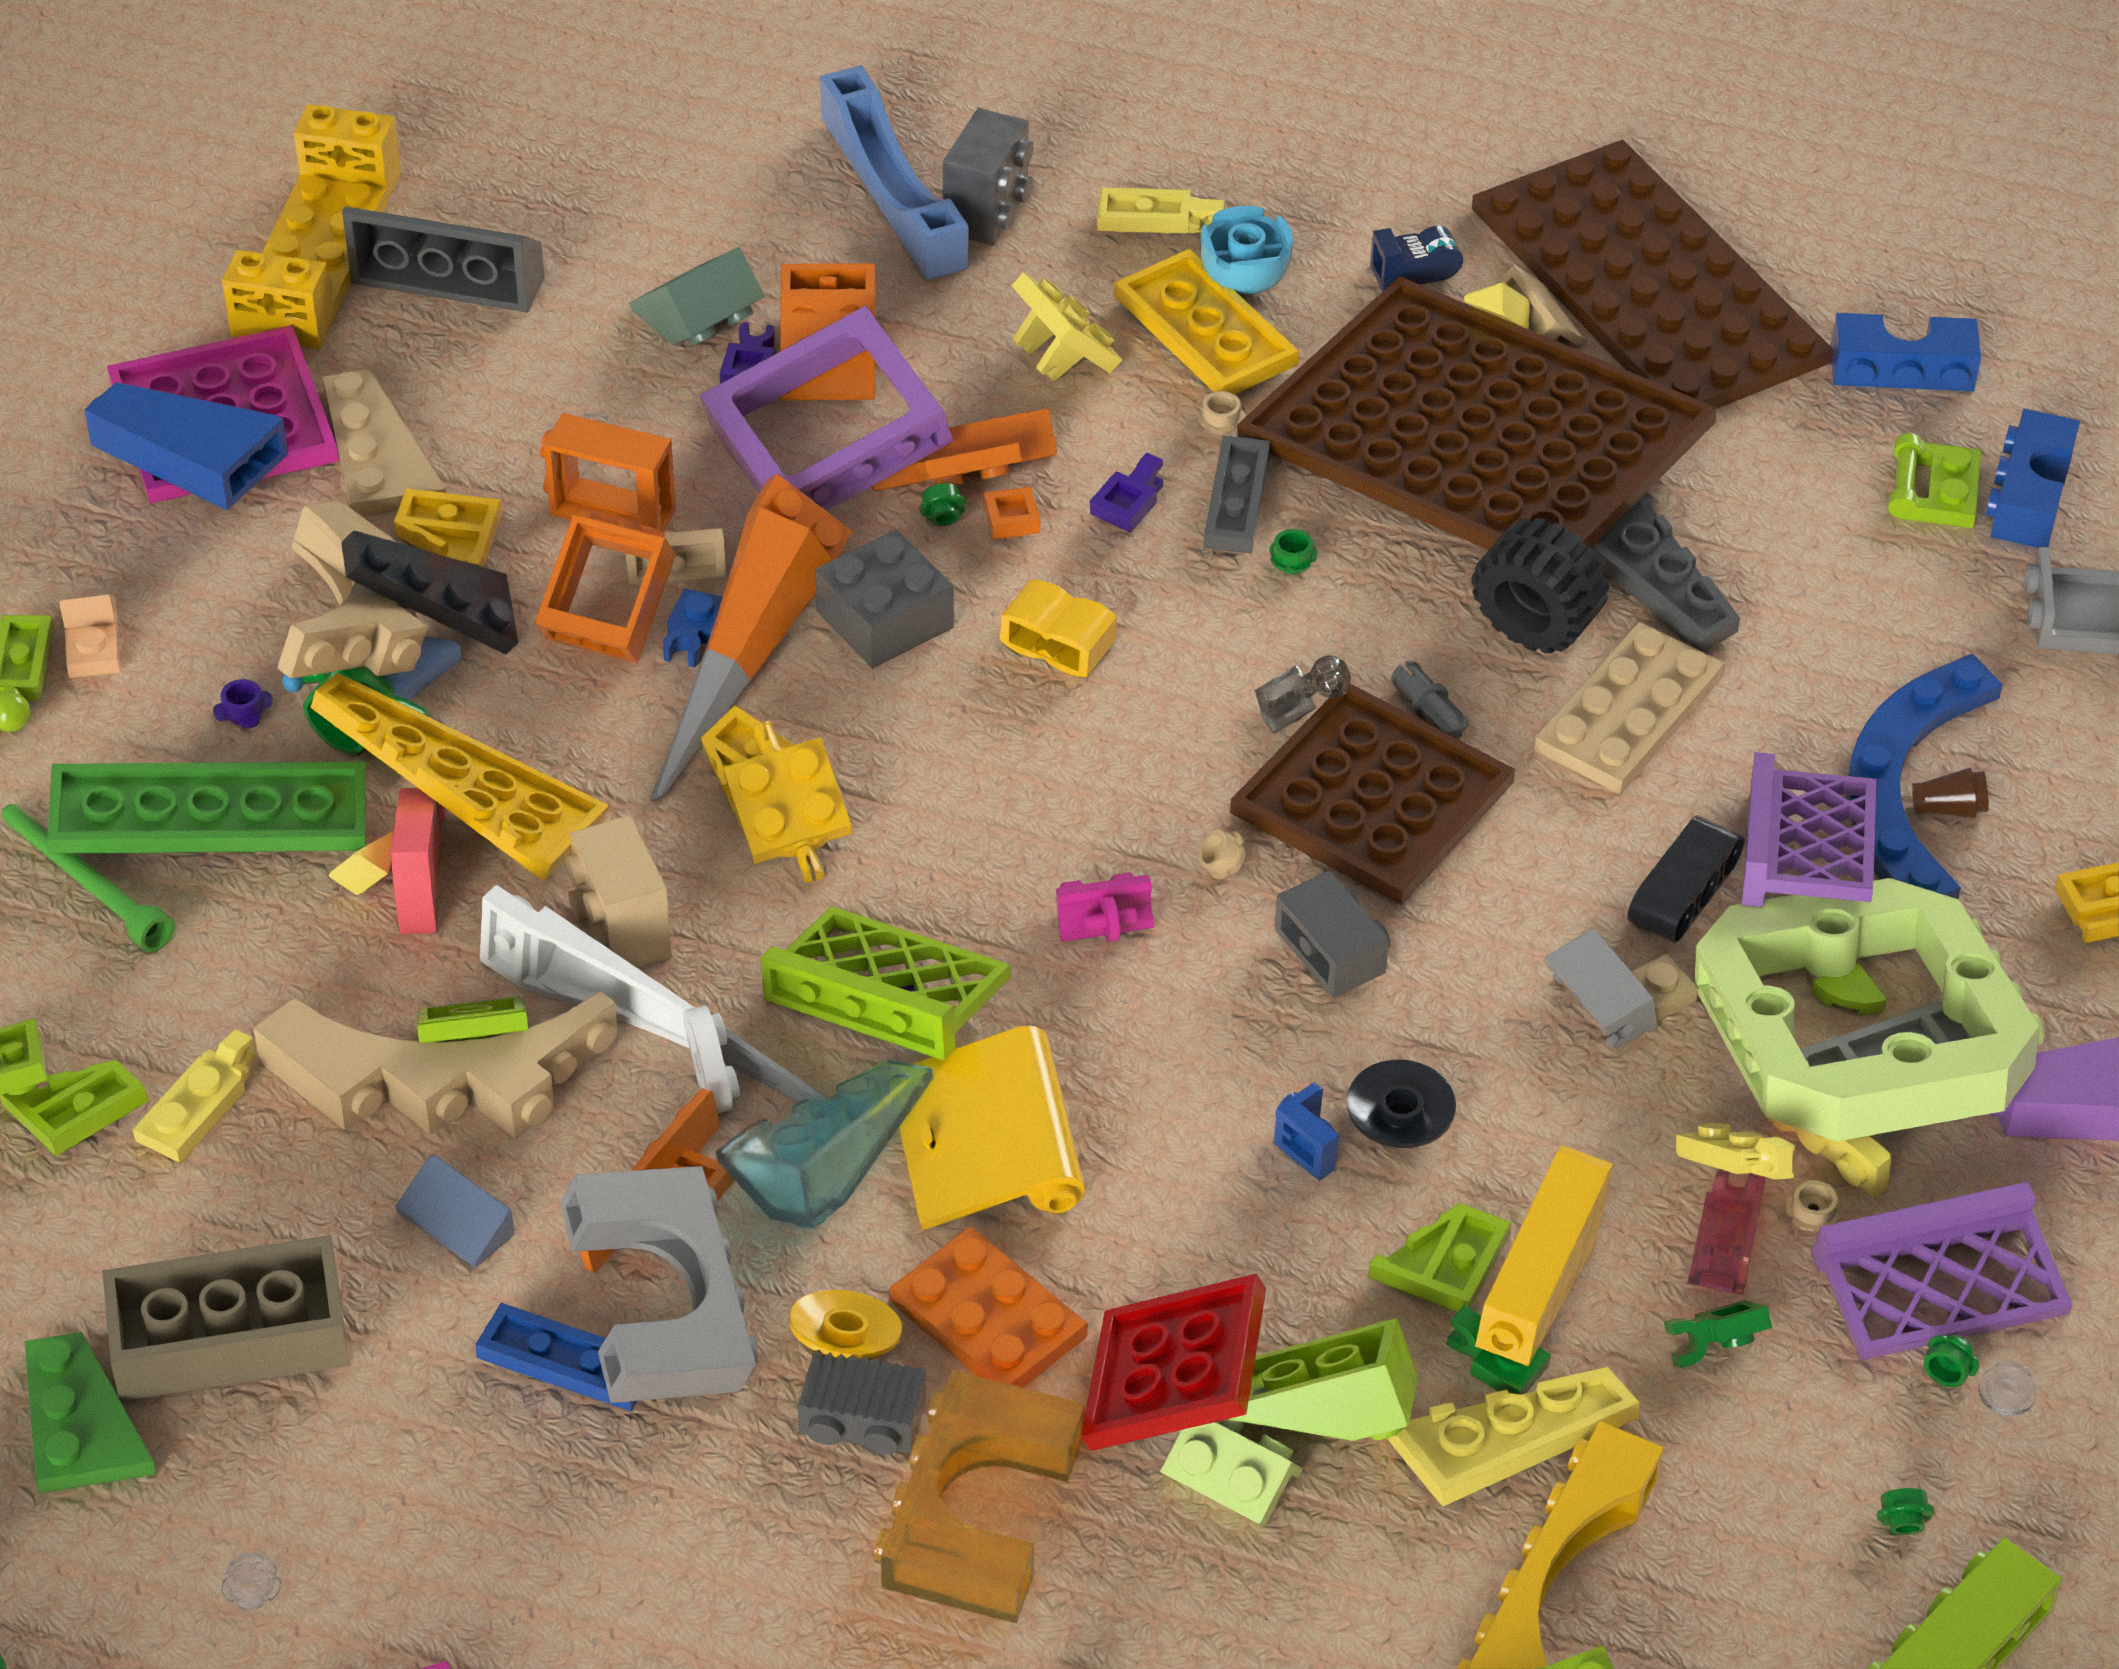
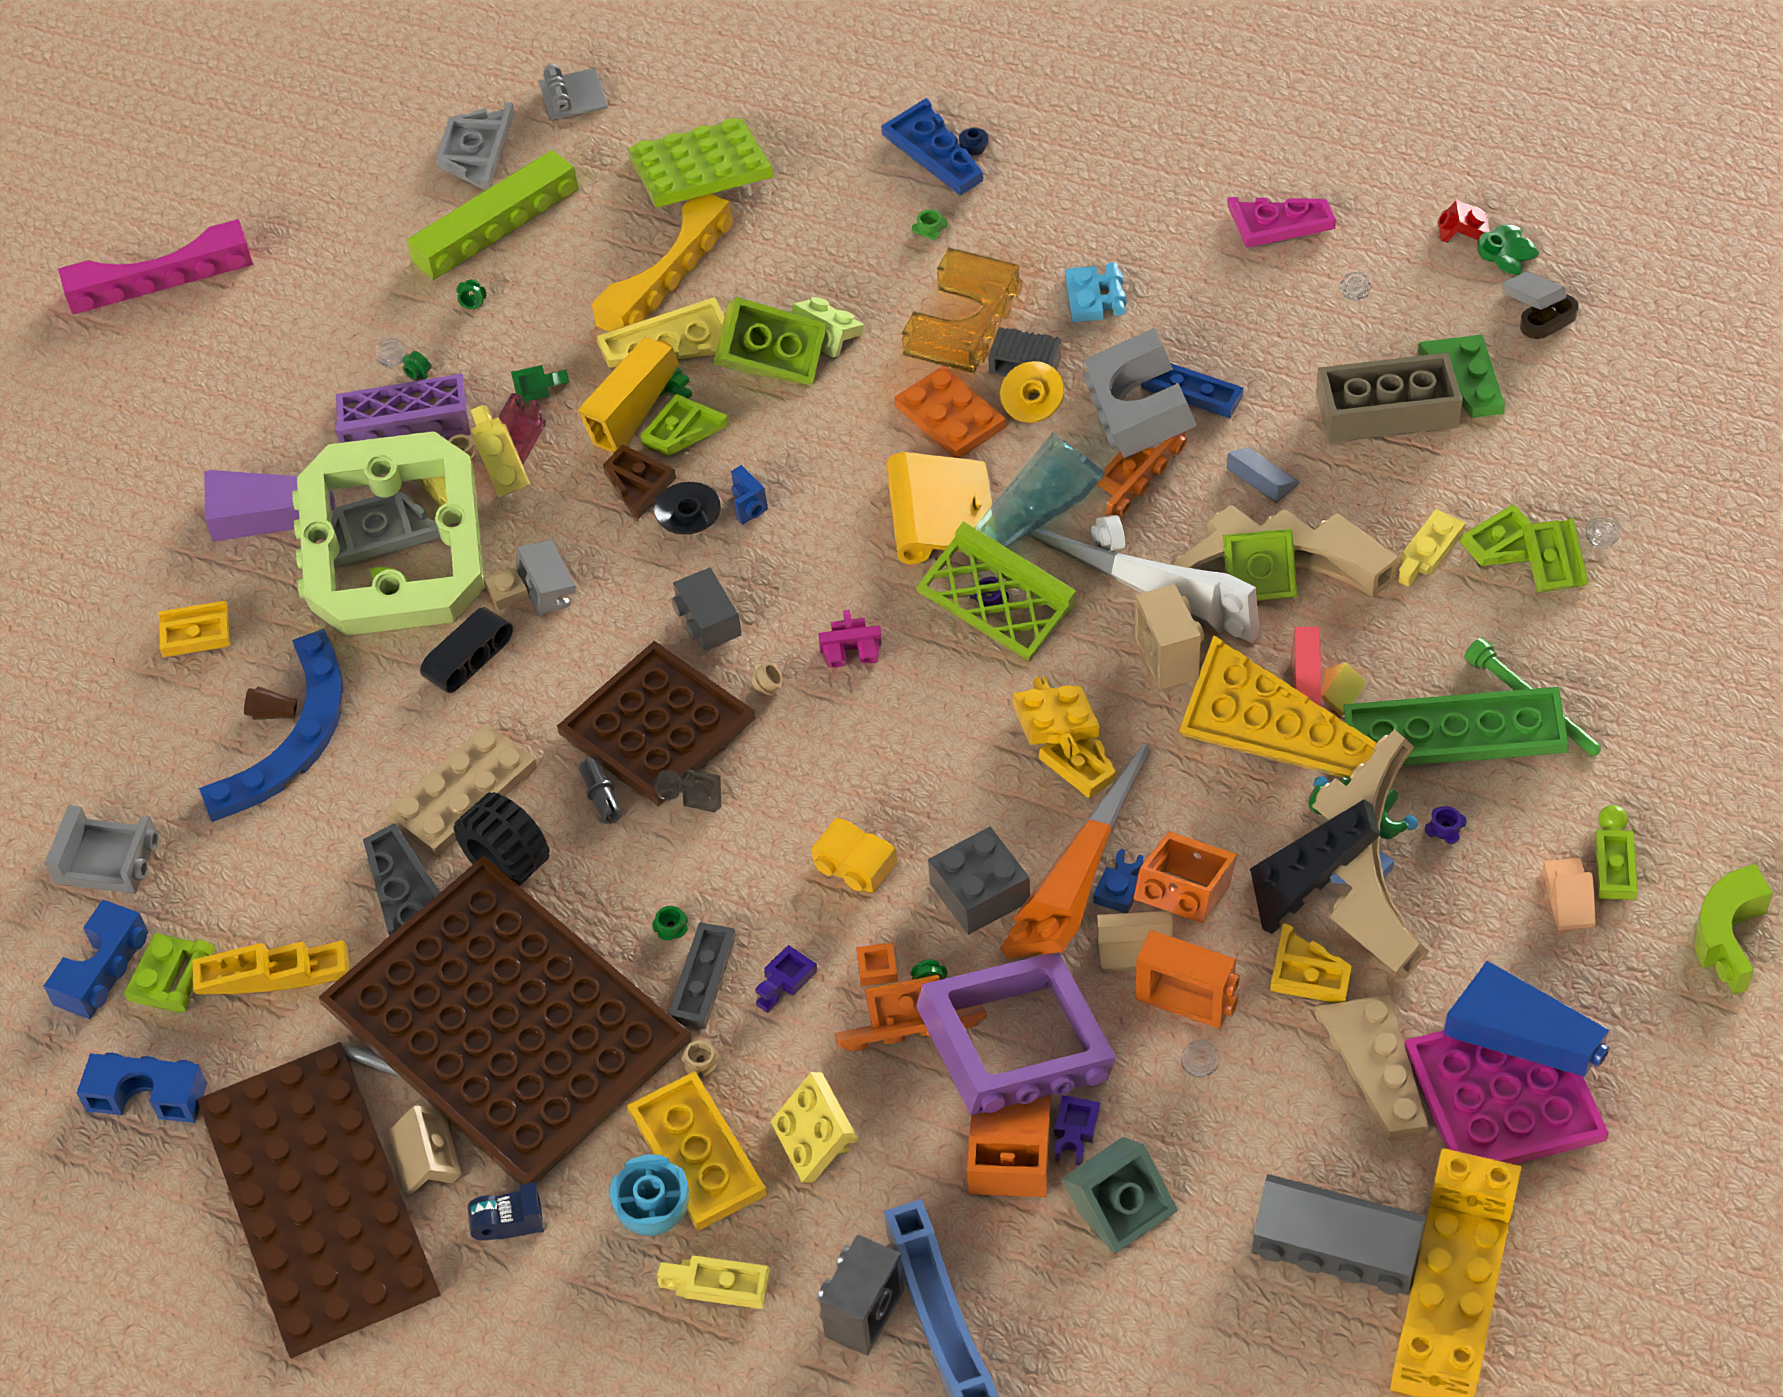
camera: 170 degrees left, 5 degrees up
(757, 1557) = (1085, 296): none -> medium azure plate
(1174, 1362) = (848, 349): red plate -> none
(1494, 1159) = (637, 478): none -> reddish brown wing
(1501, 302) = (455, 1130): light yellow slope -> none
(1771, 829) = (408, 659): medium lavender fence -> none
(1814, 479) = (265, 970): none -> yellow slope

